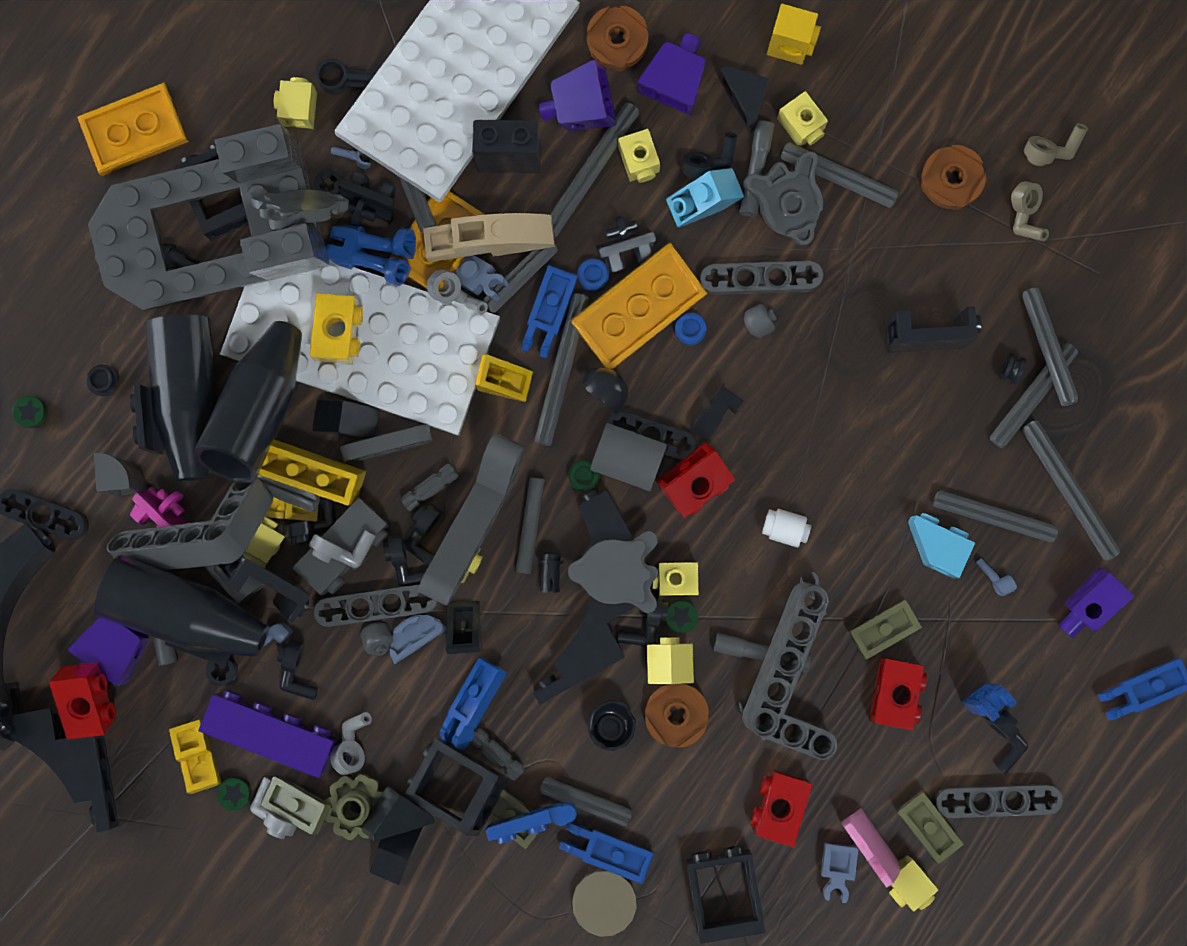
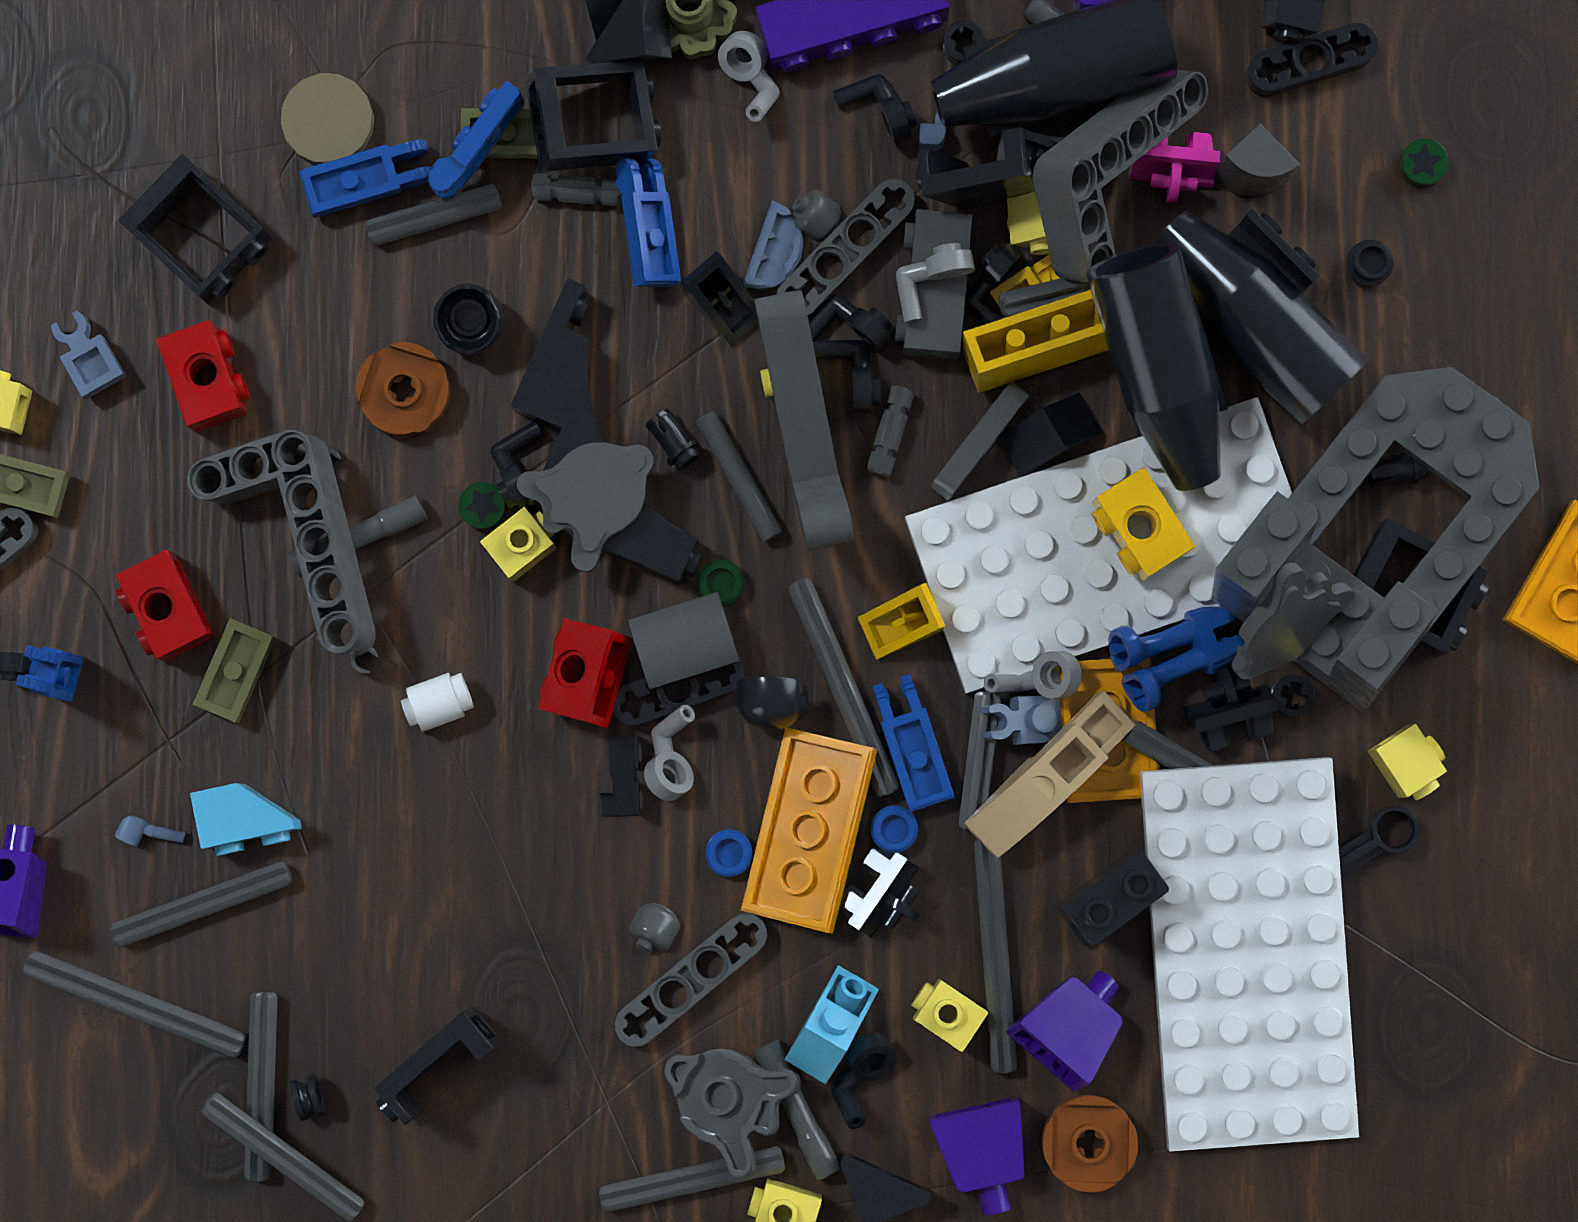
camera: 140 degrees right, 0 degrees up
(353, 155) = (1301, 750): sand blue hand -> none
(670, 662) = (454, 441): light yellow brick -> none
(690, 394) = (669, 772): none -> light grey plate
(872, 846) = (65, 410): bright pink slope -> none

